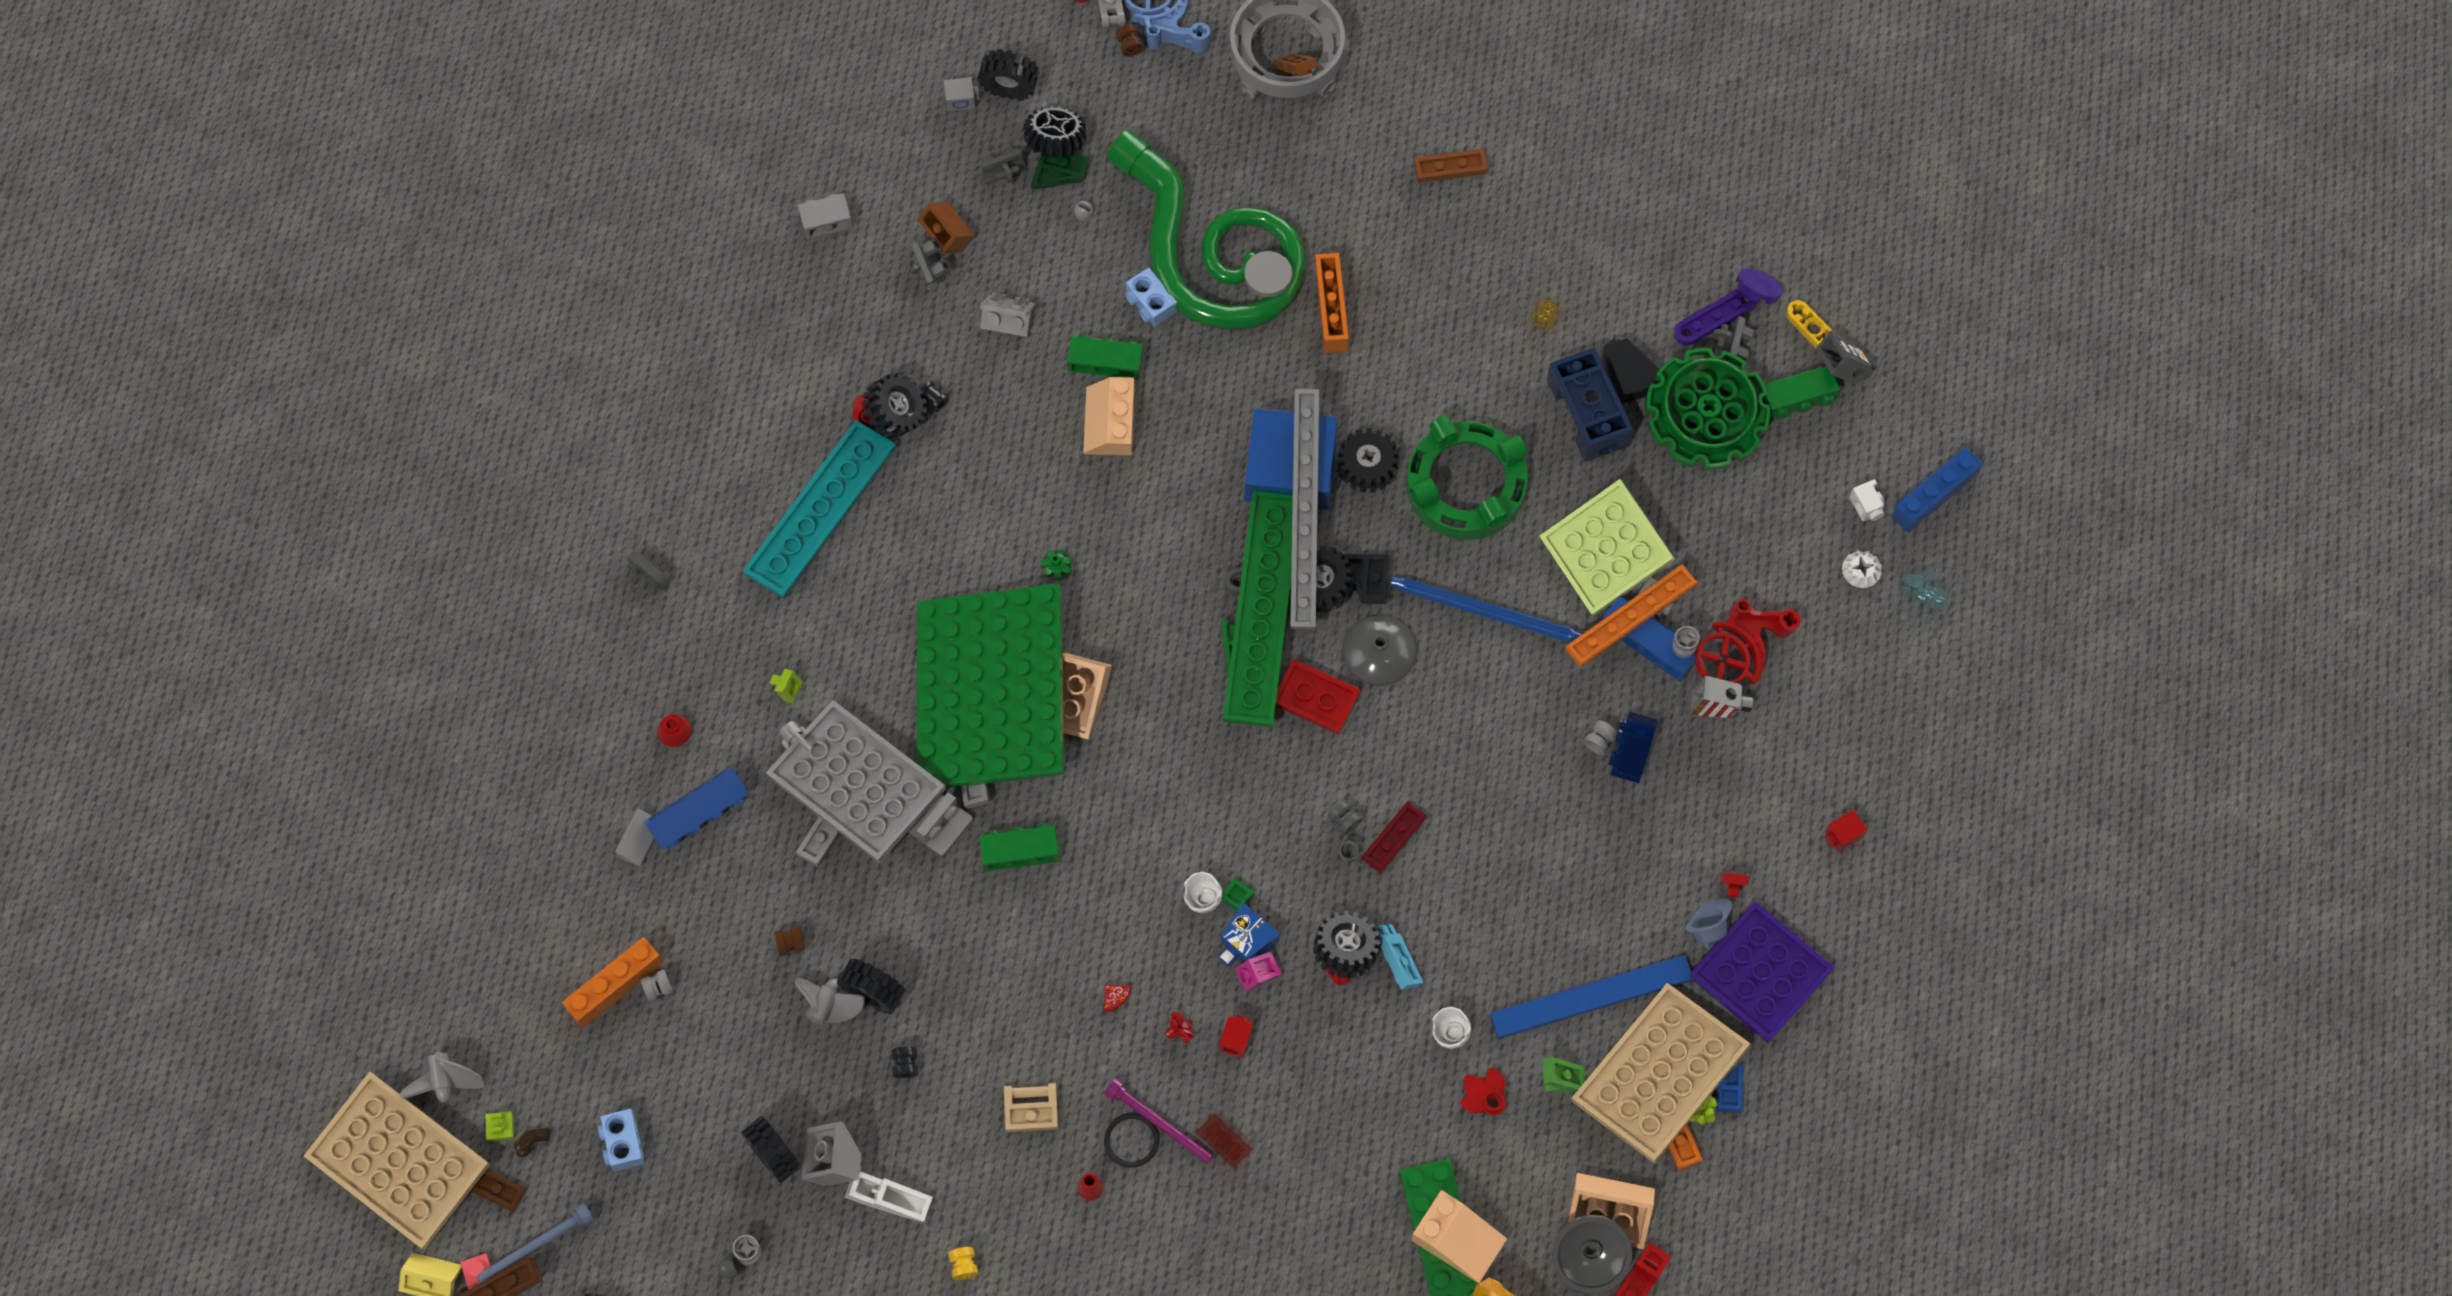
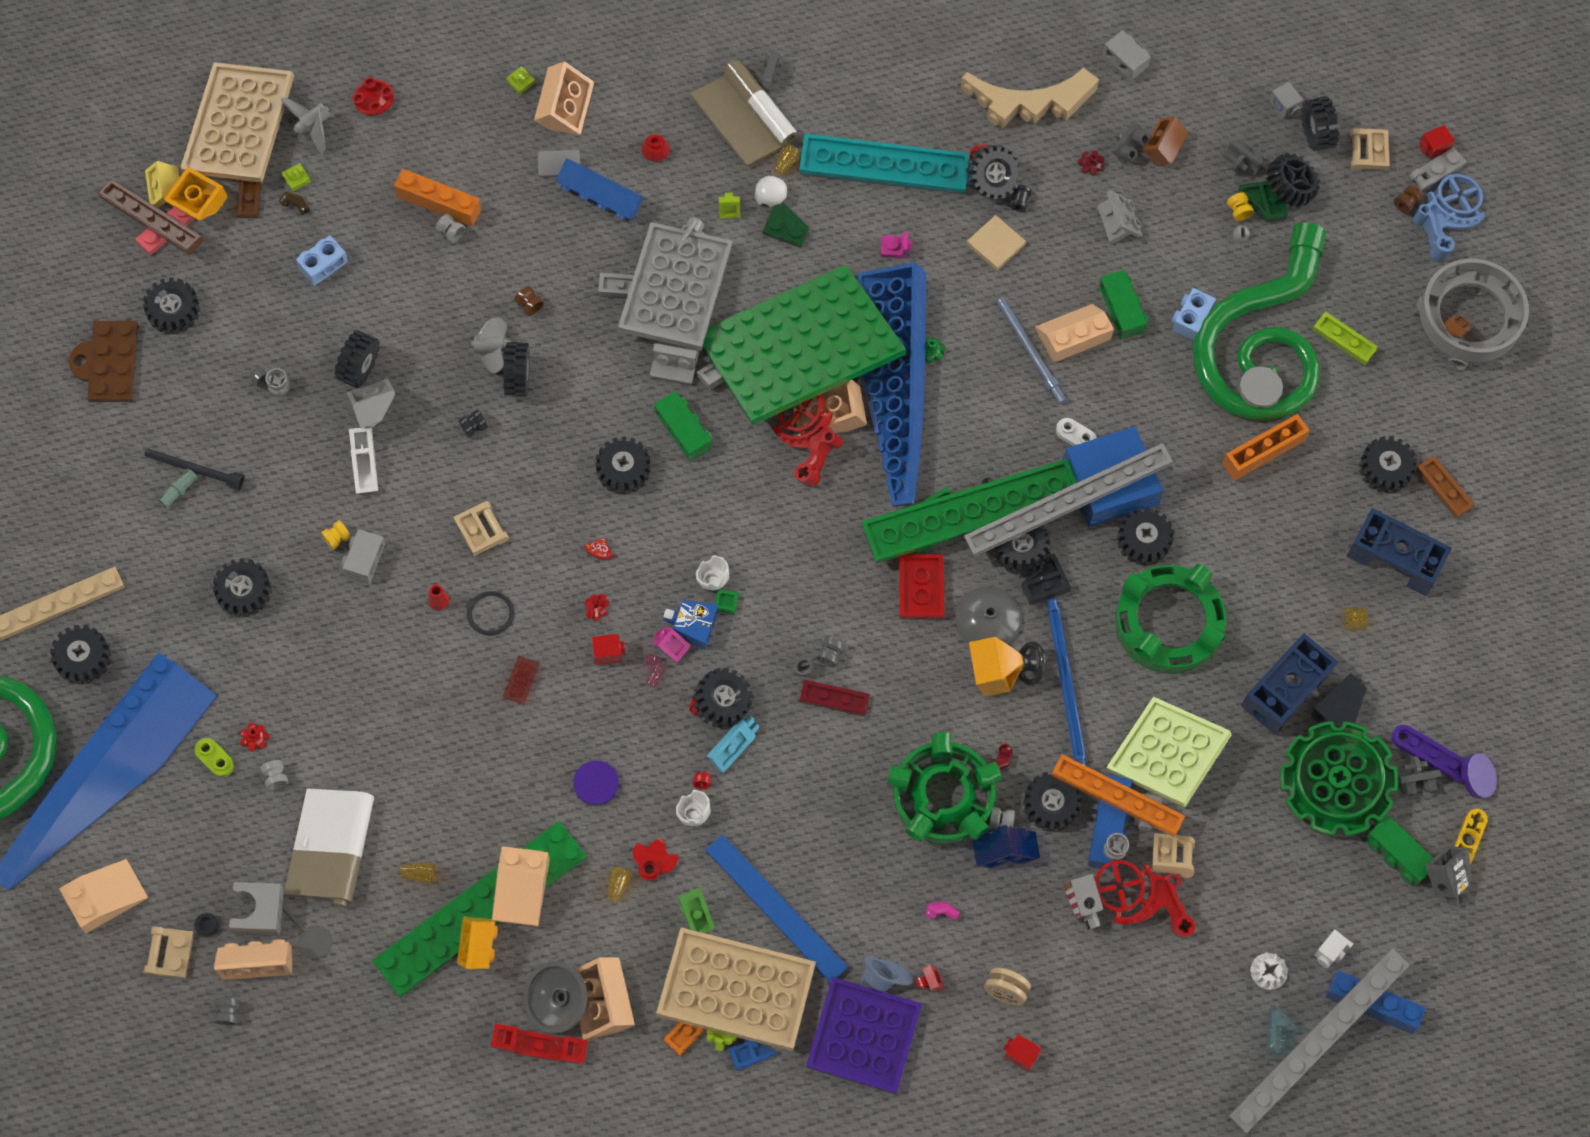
camera: 60 degrees right, 0 degrees up
(445, 999) = (373, 97): none -> red dish
(469, 1243) = (196, 195): none -> light orange slope
(511, 833) = (520, 80): none -> lime tile
(563, 797) = (564, 99): none -> light nougat slope
(579, 1217) = (252, 261): sand blue piece -> none
(683, 621) = (744, 114): none -> dark tan door
(762, 603) = (788, 157): none -> clear yellow cone
(792, 636) = (770, 191): none -> white hair
(831, 335) = (1032, 104): none -> tan arch
(837, 640) = (785, 226): none -> dark green wing
(921, 542) = (895, 246): none -> dark pink bracket
(926, 310) = (1091, 162): none -> dark red plant
(969, 444) = (996, 242): none -> tan tile
(1002, 1244) = (363, 556): none -> light grey brick
(1029, 940) = (630, 473): none -> black wheel
(1049, 195) = (1240, 206): none -> yellow wheel
(1058, 40) = (1376, 149): none -> tan plate
(1089, 617) = (898, 386): none -> blue wedge
(1109, 721) = (818, 441): none -> red piece
(1118, 1092) = (523, 583): magenta piece -> none
(1155, 468) = (1050, 382): none -> sand blue bar
(1224, 472) = (1075, 434): none -> white plate
(1248, 173) = (1345, 338): none -> lime plate
(1278, 998) = (656, 669): none -> clear pink arm
(1374, 1114) = (596, 783): none -> dark purple tile
(1403, 215) = (1382, 473): none -> black wheel
(1423, 1007) = (701, 780): none -> red hinge
(1443, 659) = (999, 665): none -> light orange piece
(1480, 248) = (1379, 540): none -> dark blue plate
(1494, 1139) = (618, 882): none -> clear yellow cone
(1529, 797) = (943, 750): none -> green piece
(1537, 708) = (1004, 756): none -> dark red arm
(1604, 669) = (1047, 791): none -> black wheel
(1664, 837) = (941, 908): none -> dark pink arm
(1709, 603) = (1165, 854): none -> tan plate
(1775, 812) = (1007, 986): none -> tan head
(1955, 556) = (1318, 1040): none -> light grey plate

